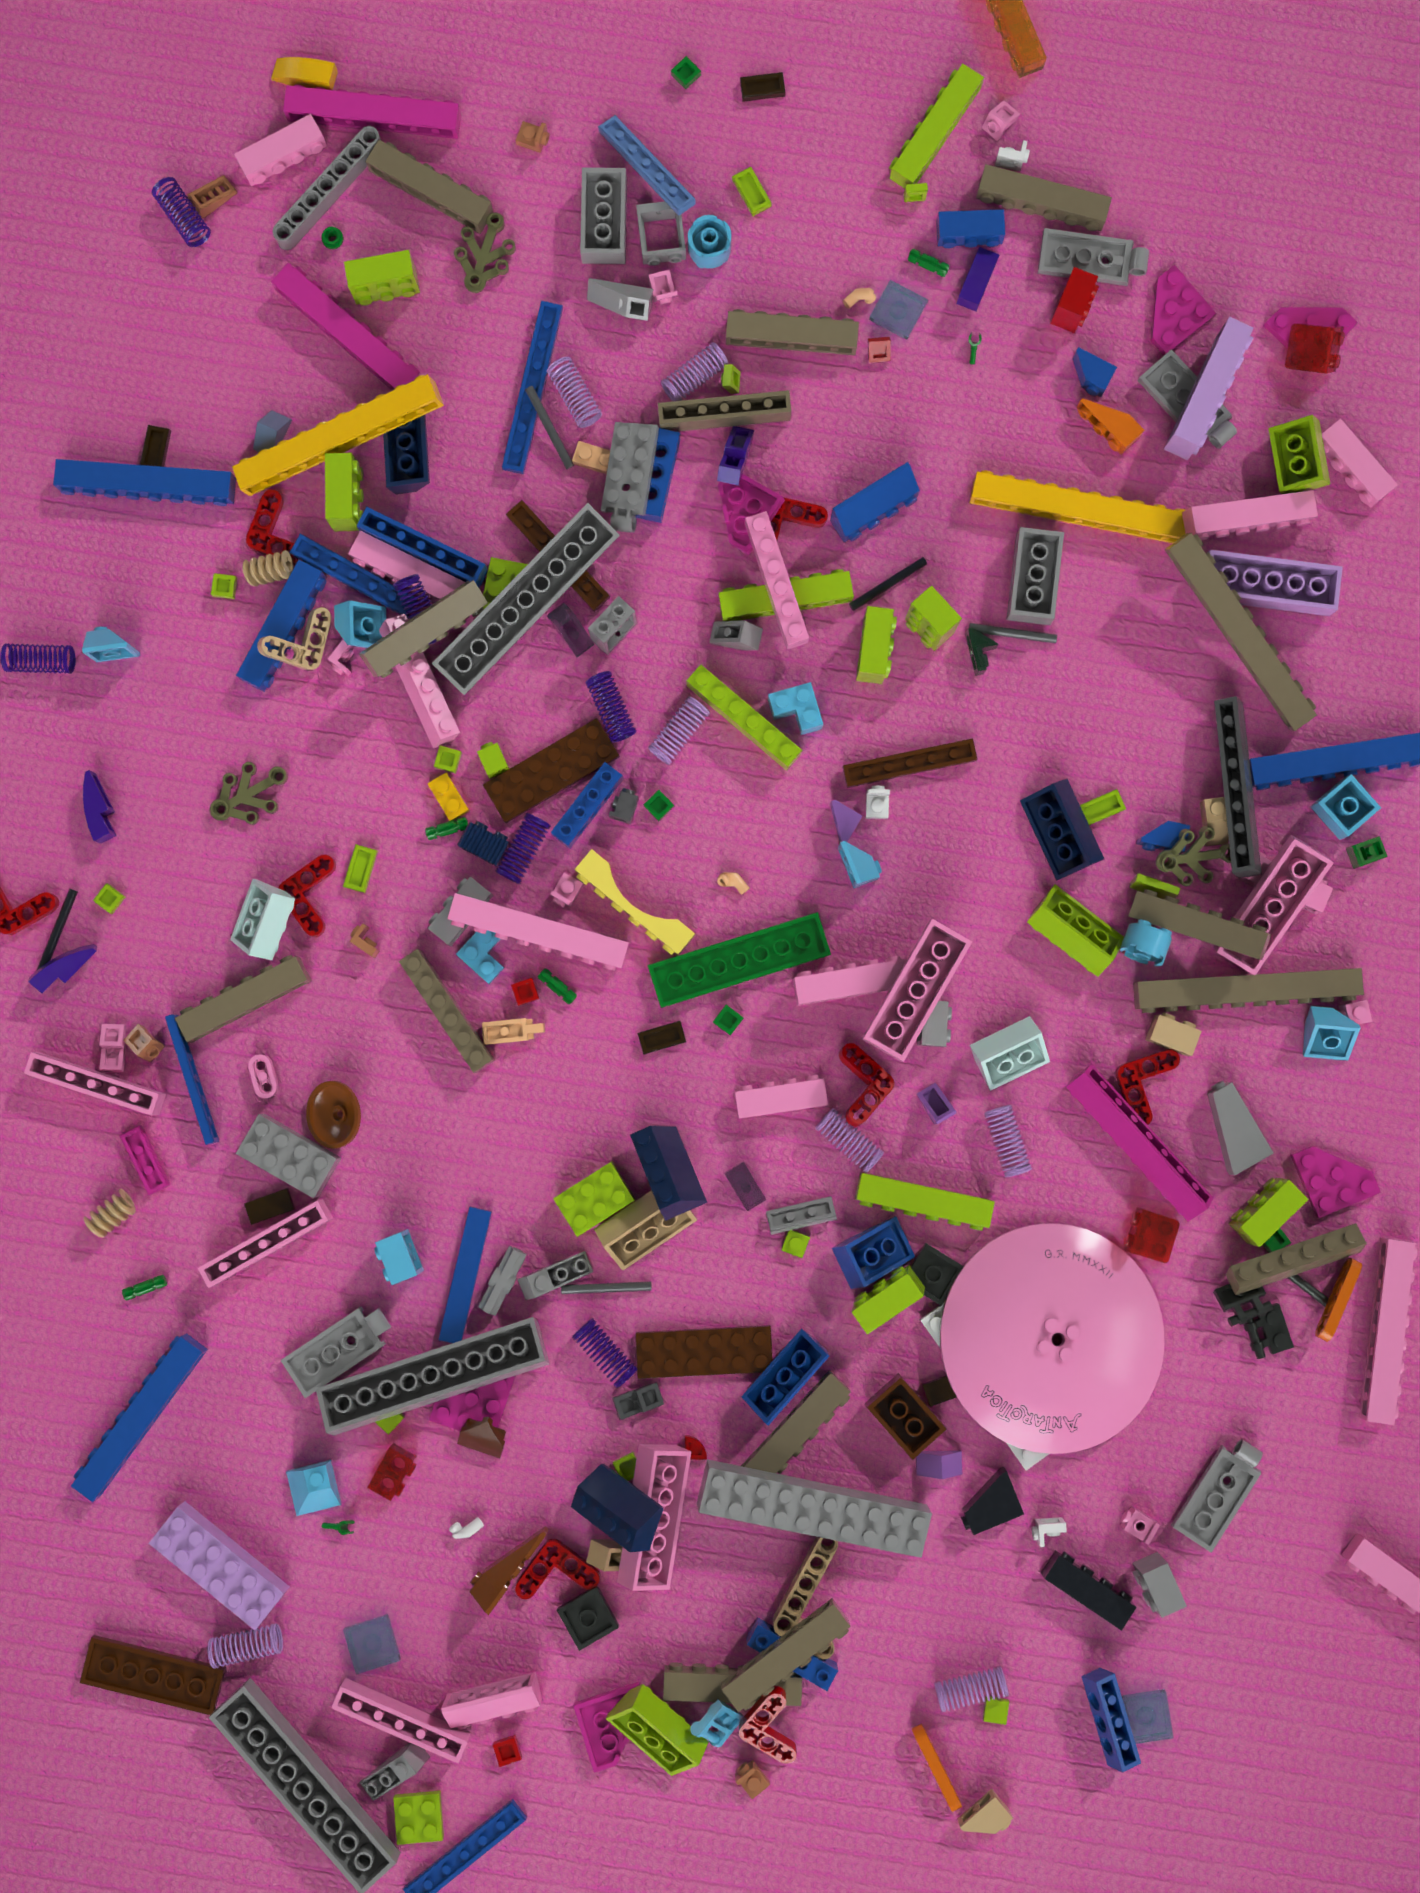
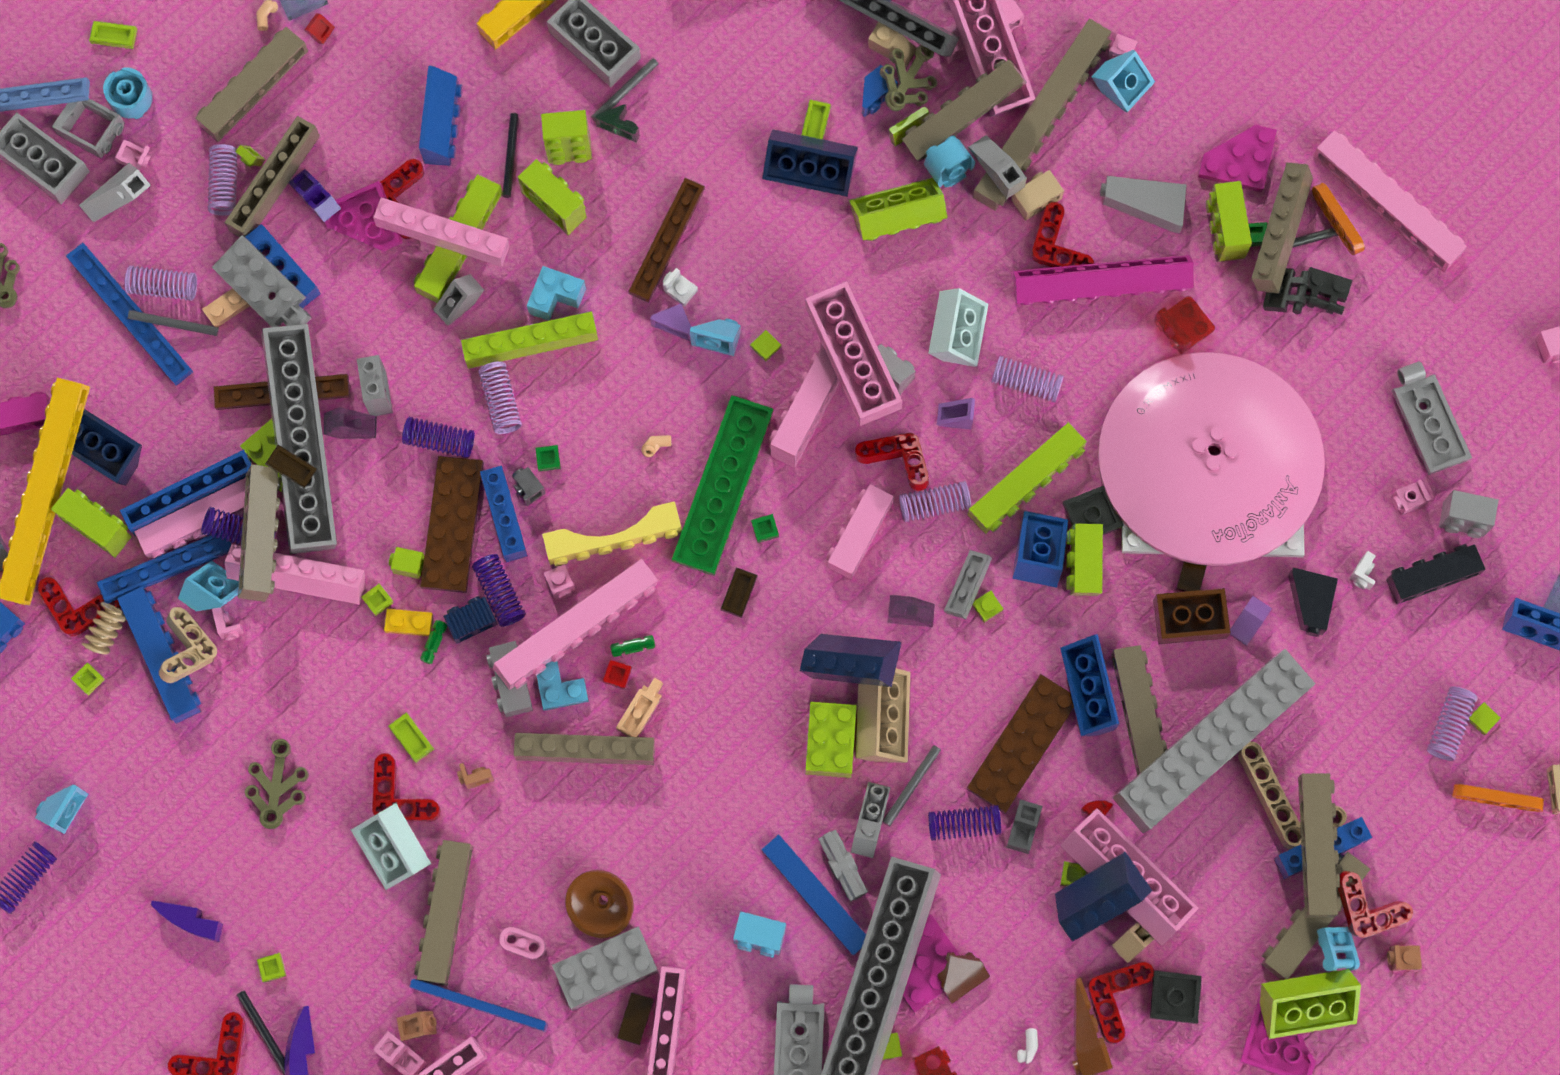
camera: 55 degrees left, 10 degrees down
(495, 612) = (291, 466): none -> dark brown tile
(880, 908) = (765, 345): none -> lime tile
(1171, 987) = (999, 166): none -> light grey slope

